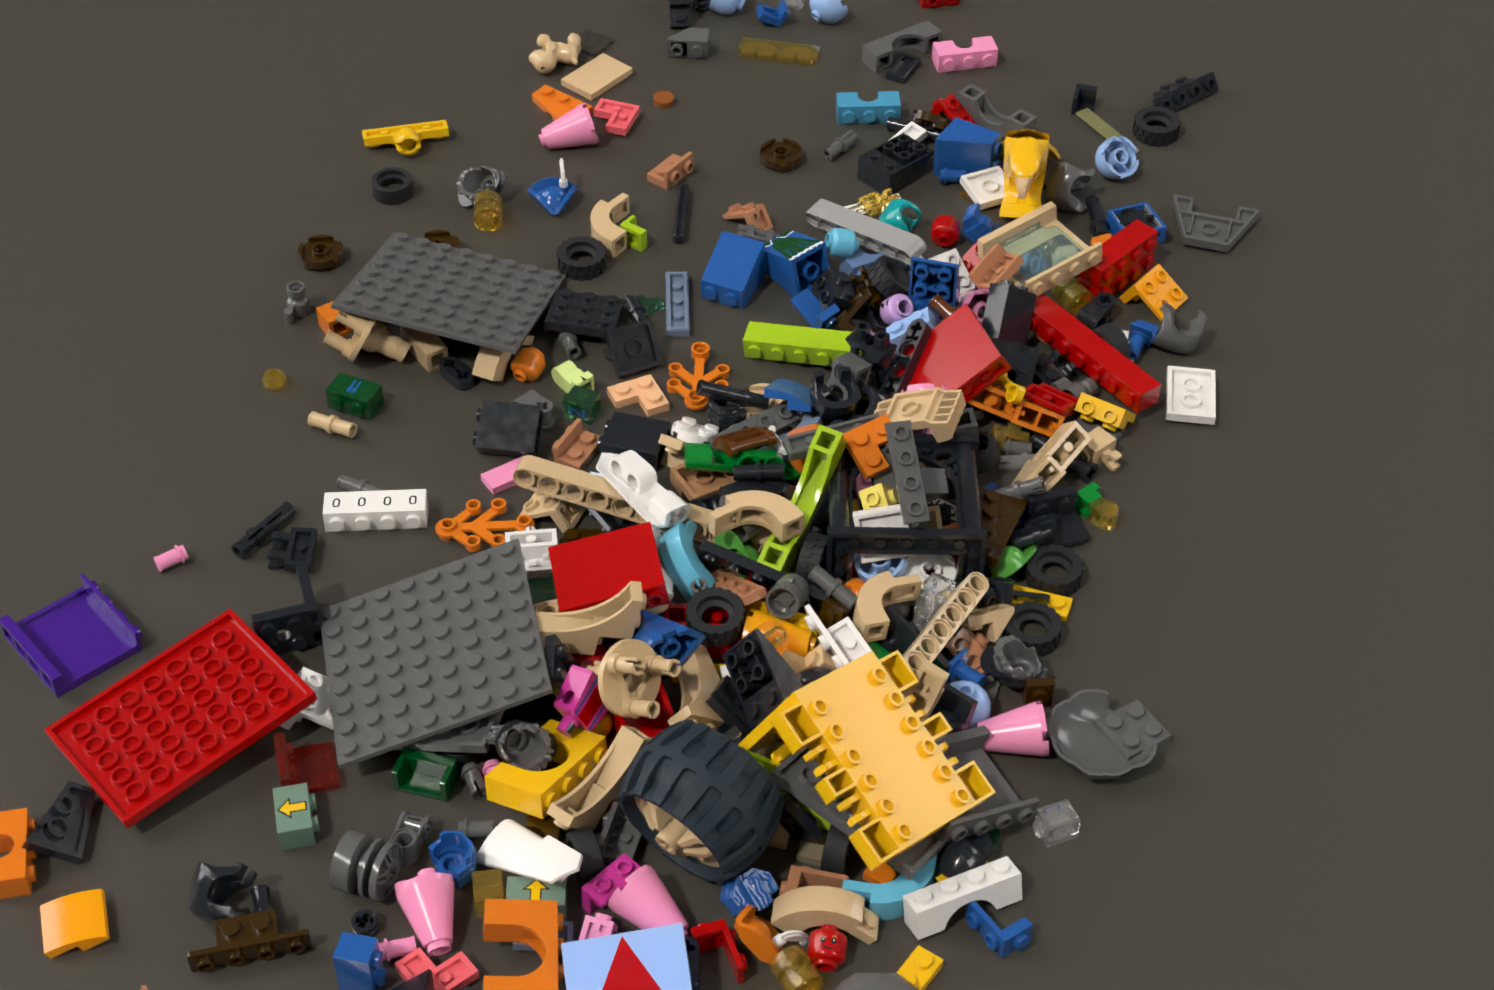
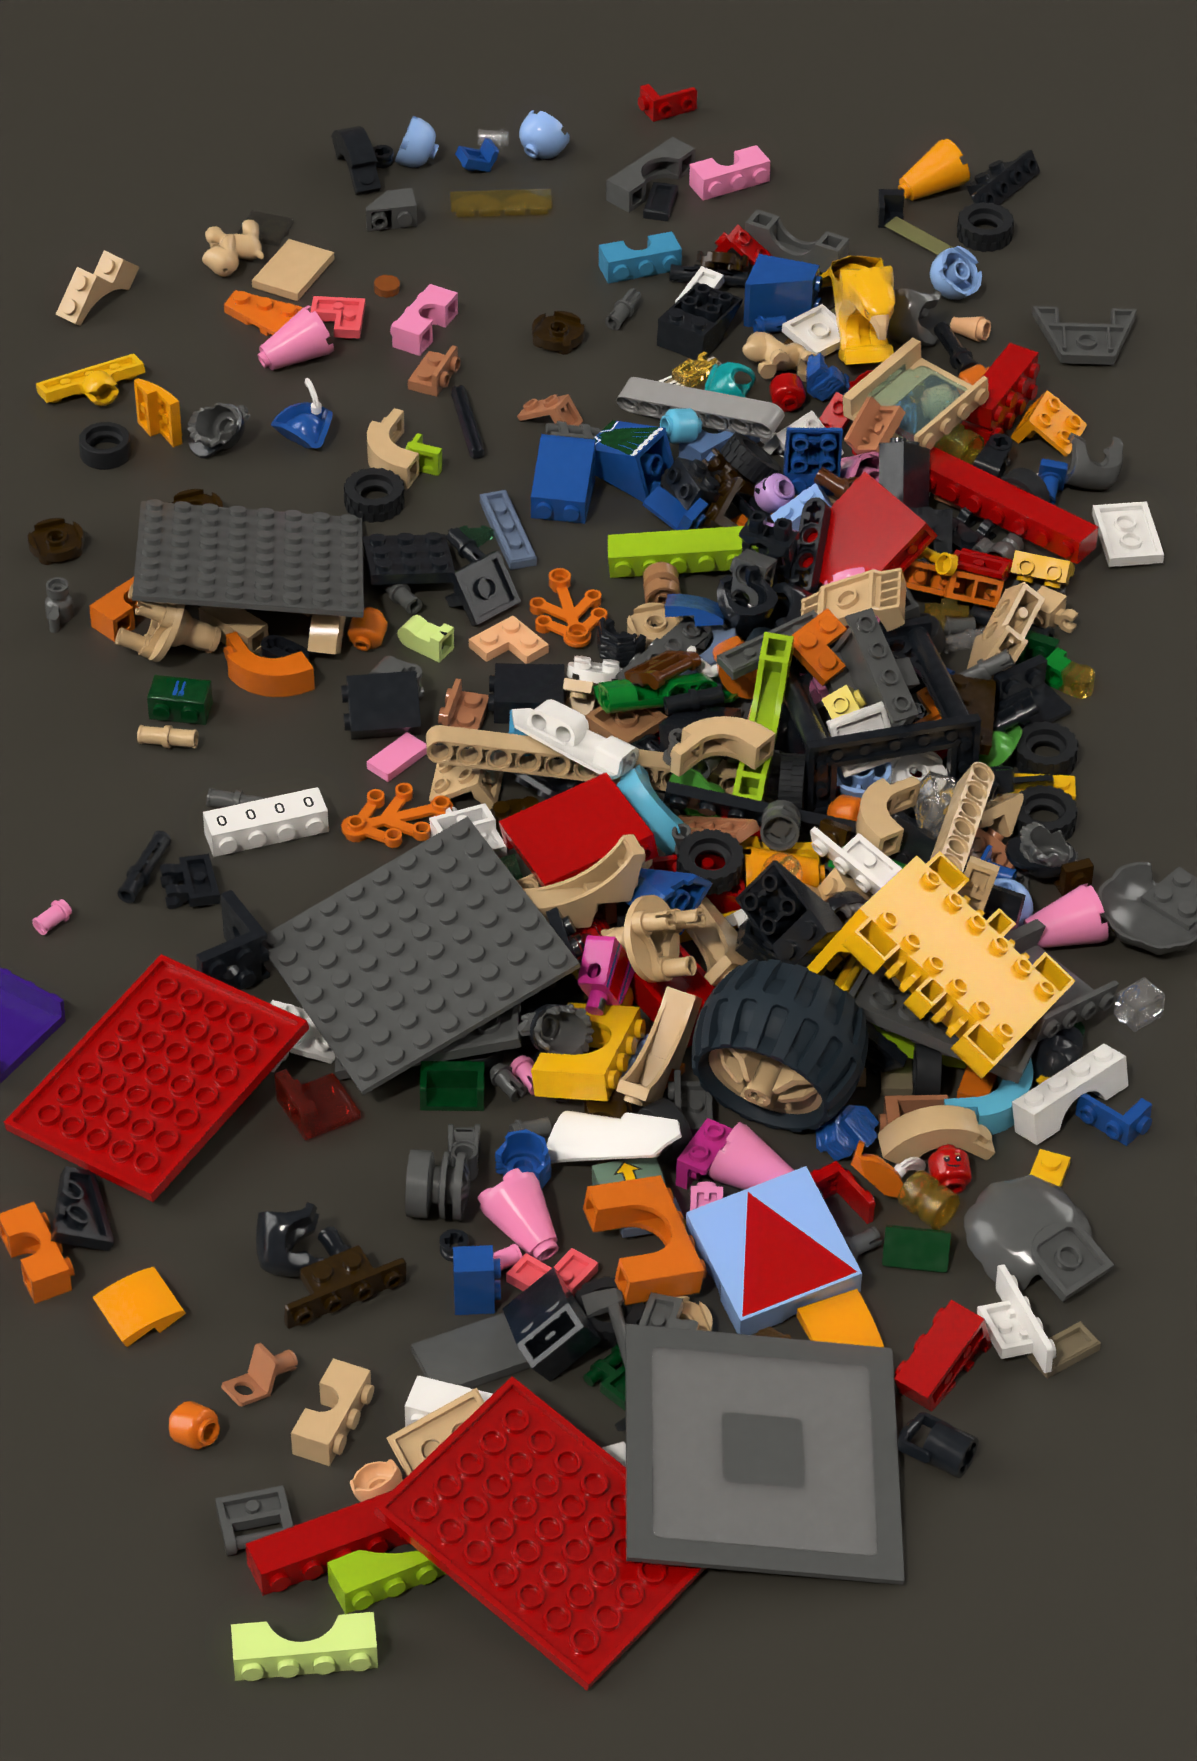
camera: 15 degrees left, 0 degrees up
(274, 379) = (72, 698): clear yellow plate -> none
(294, 816) = (329, 1154): sand green brick -> none
(431, 65) = (88, 288): none -> tan arch
(433, 389) = (267, 676): none -> orange arch
(439, 166) = (158, 411): none -> light orange slope
(486, 885) = (570, 1186): clear yellow brick -> none
(487, 210) = (238, 456): clear yellow wheel -> none
(582, 404) = (449, 662): clear green brick -> none
(667, 134) = (414, 327): none -> bright pink arch
(742, 397) = (636, 621): black pin -> none
(779, 365) = (659, 581): none -> medium nougat wheel
(833, 587) = (827, 806): dark grey pin -> none
(945, 199) = (775, 355): none -> tan animal
(1076, 477) = (1038, 645): none -> dark green bracket
(1114, 201) = (971, 327): none -> light nougat cone
(1123, 216) = (991, 342): piece -> none
(1128, 77) = (935, 172): none -> light orange cone

